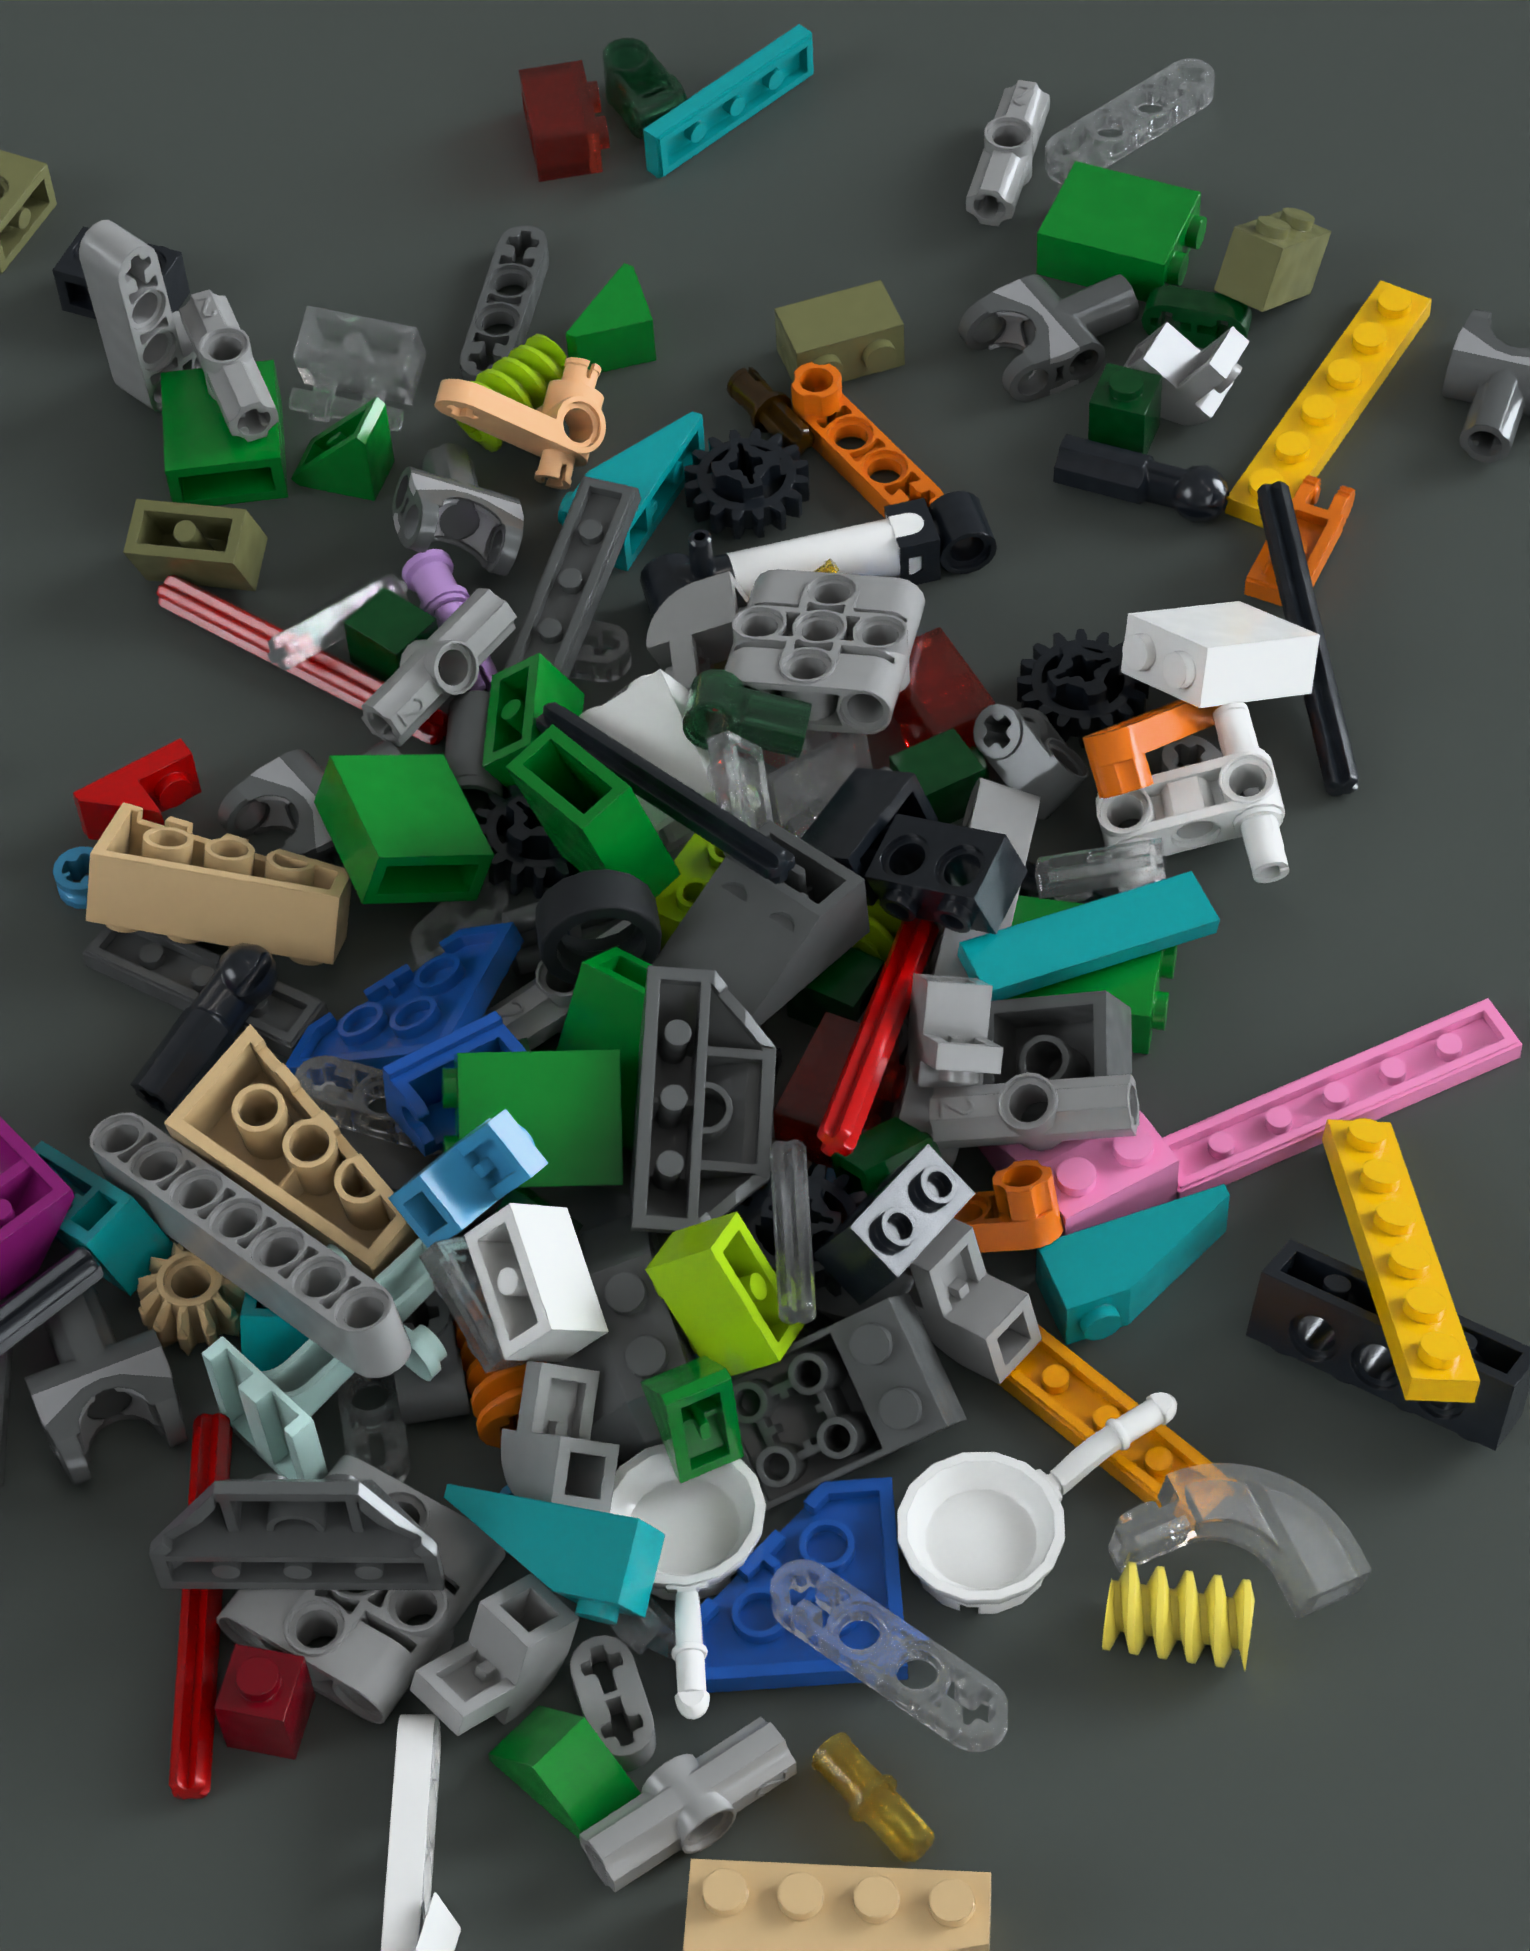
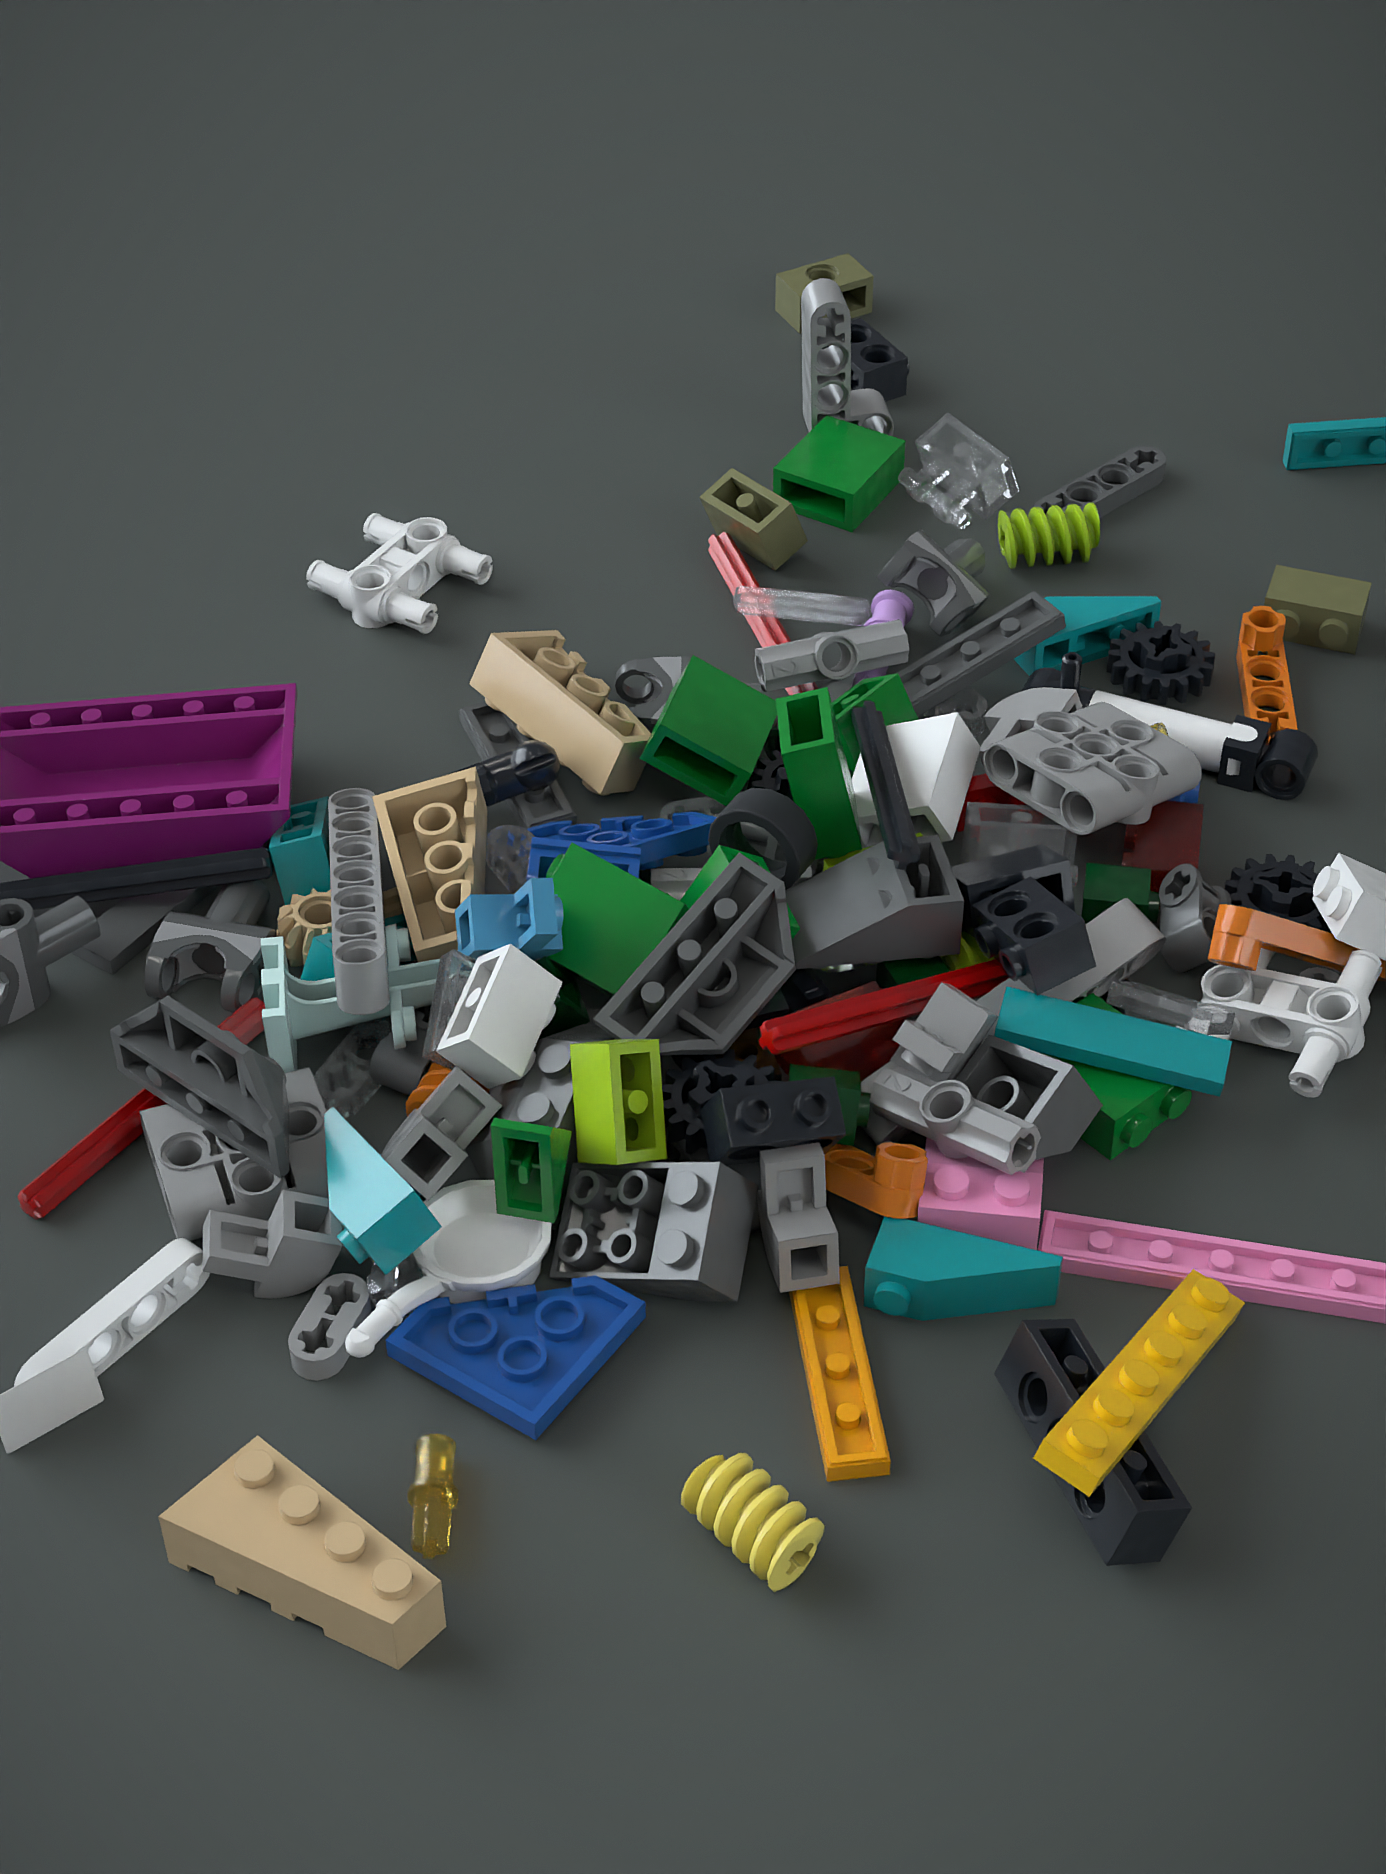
camera: 35 degrees right, 10 degrees down
(152, 782) = (595, 636): red slope -> none
(228, 365) = (864, 424): light grey piece -> none
(265, 1701) = (117, 1180): dark red brick -> none
(350, 455) = (908, 516): green slope -> none
(383, 630) = (826, 616): dark green brick -> none
(540, 429) = (1079, 550): light nougat piece -> none
(562, 120) = (1244, 402): clear red brick -> none
(564, 1768) = (257, 1353): green slope -> none
(615, 326) = (1157, 531): green slope -> none
(638, 84) = (1319, 396): clear green piece -> none
(688, 1804) = (309, 1415): light grey piece -> none
(739, 778) = (949, 808): clear plate -> none
(760, 717) = (981, 761): clear green piece -> none
(769, 409) = (1222, 630): dark brown axle -> none
(792, 1232) = (698, 1086): clear axle -> none
(895, 1646) = (523, 1404): clear beam -> none
(992, 1525) = (682, 1371): white piece -> none
(1258, 1511) = (871, 1479): clear arch -> none

